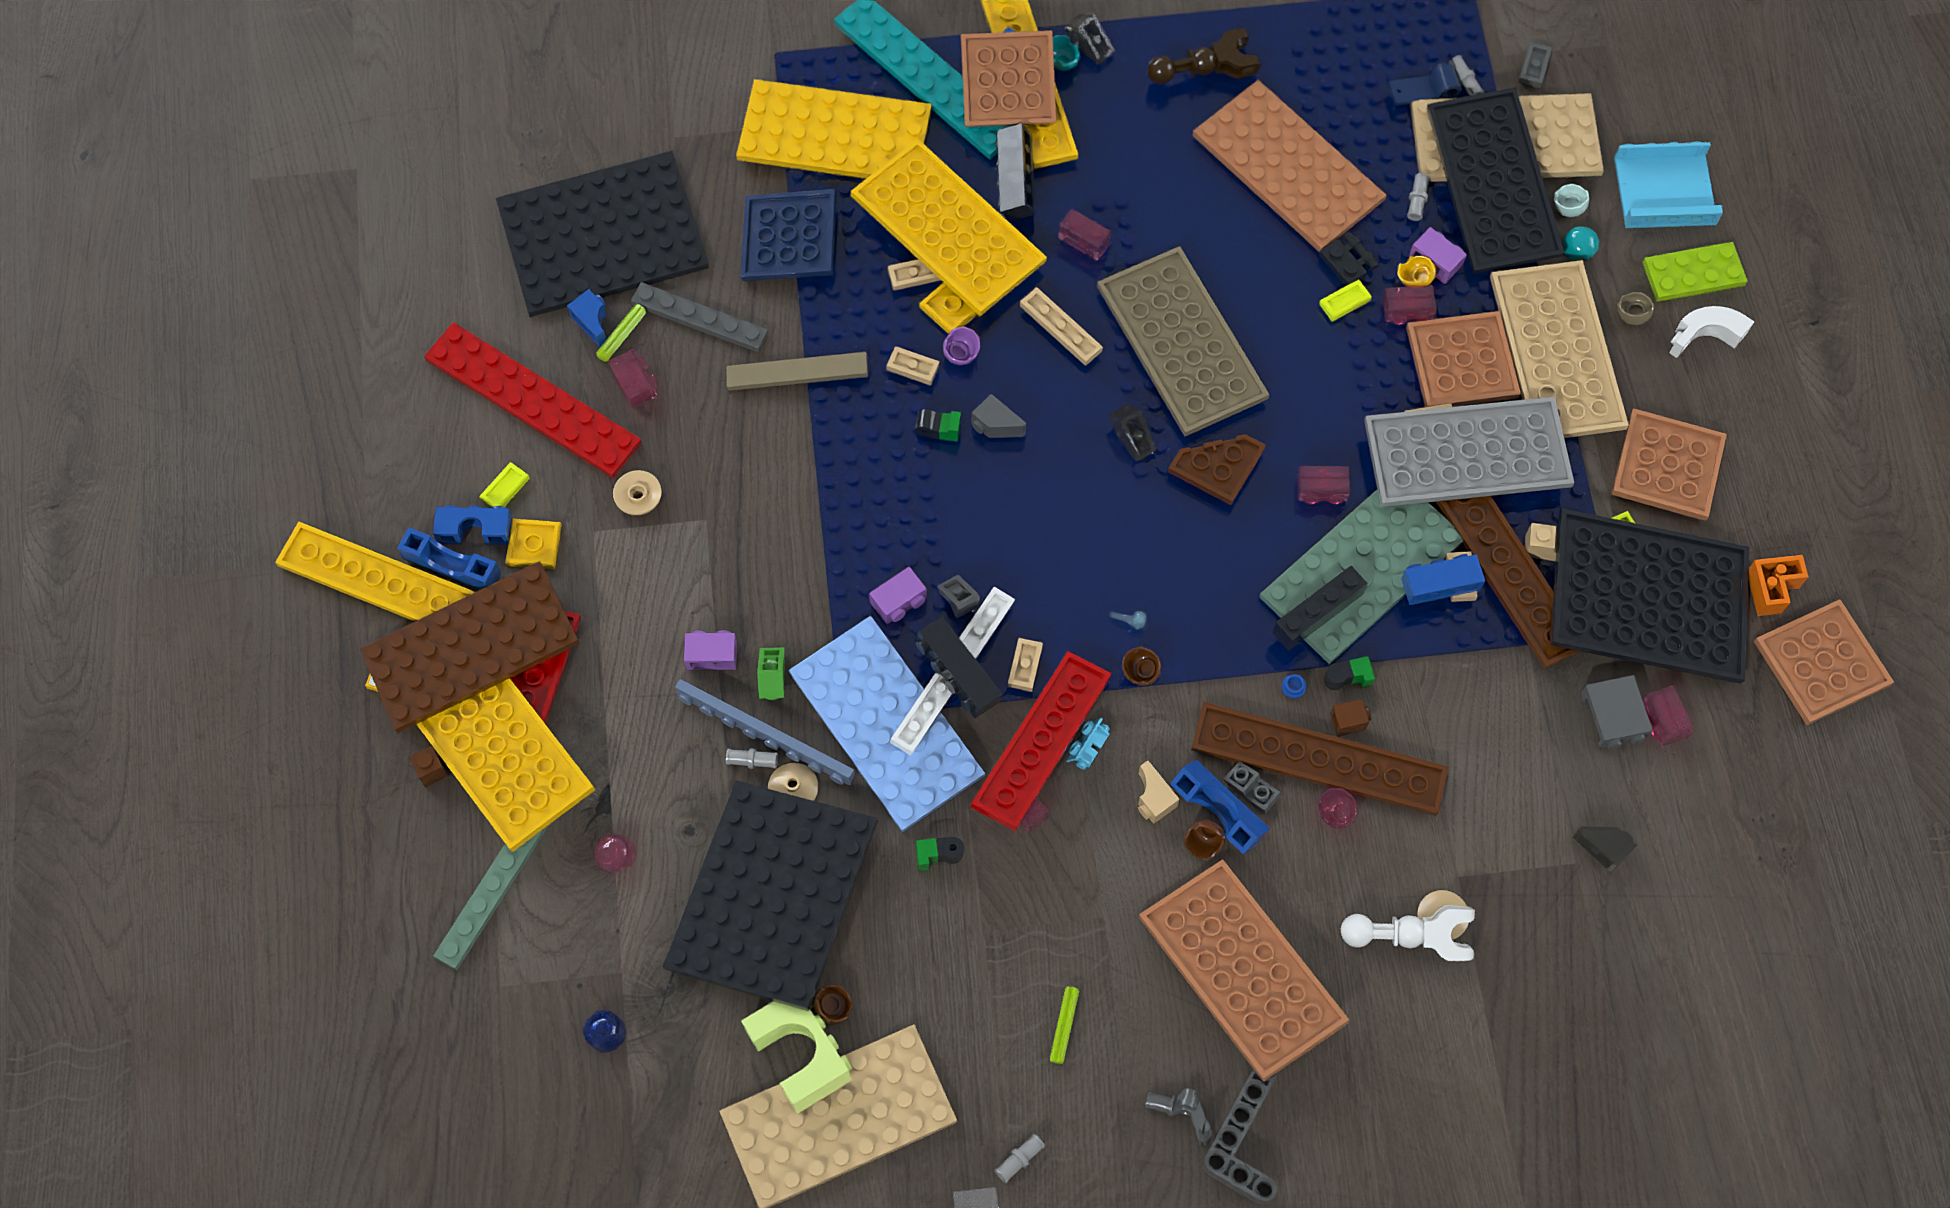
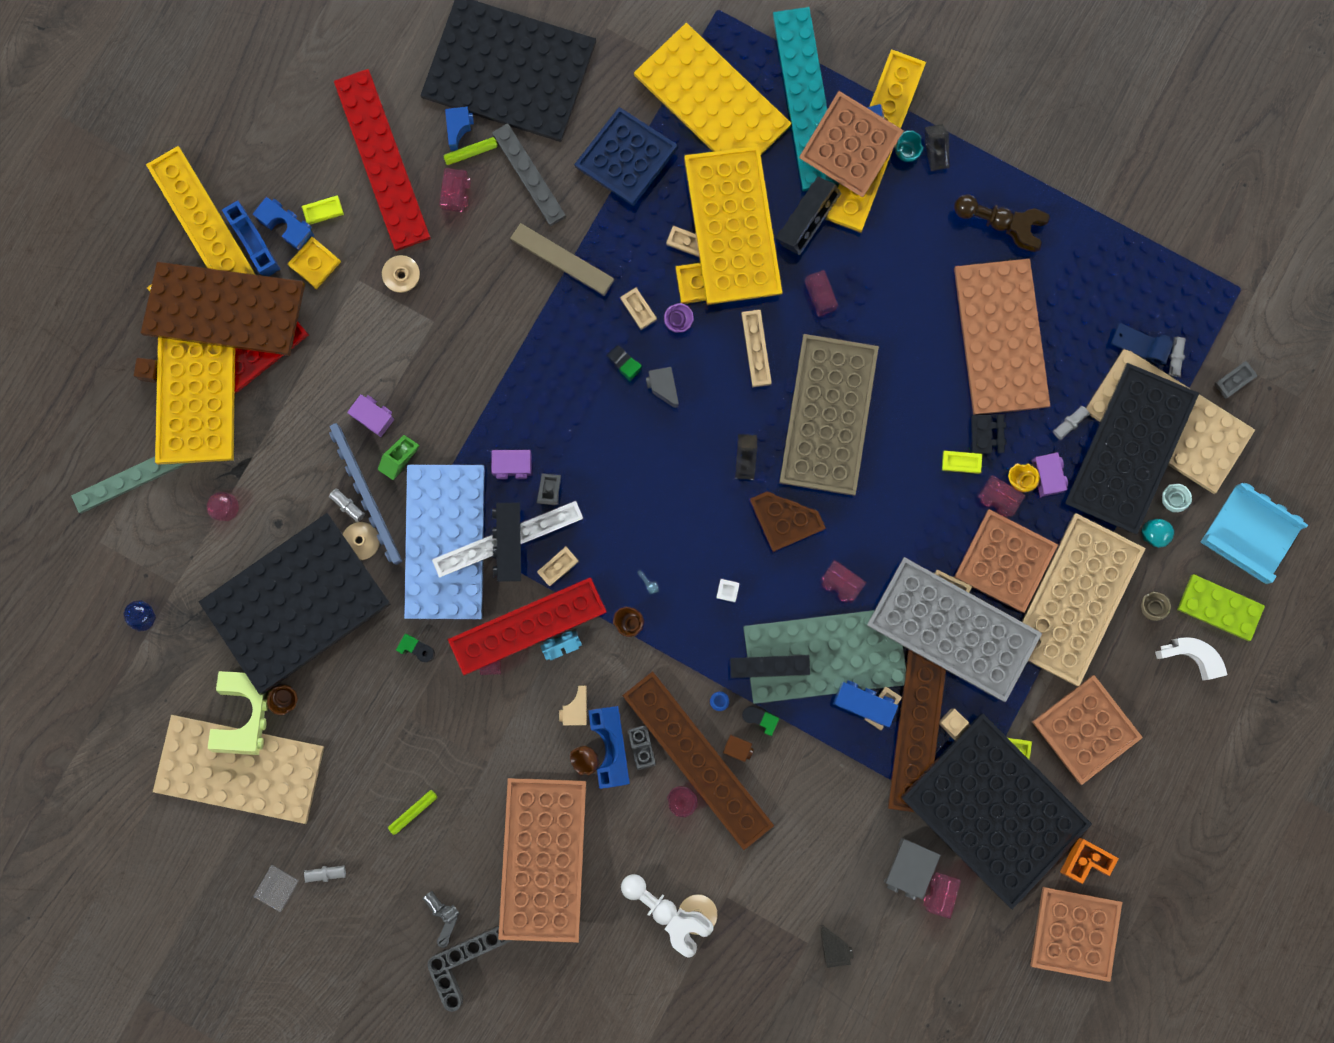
camera: 35 degrees right, 15 degrees up
(1216, 570) = (727, 590): none -> white plate

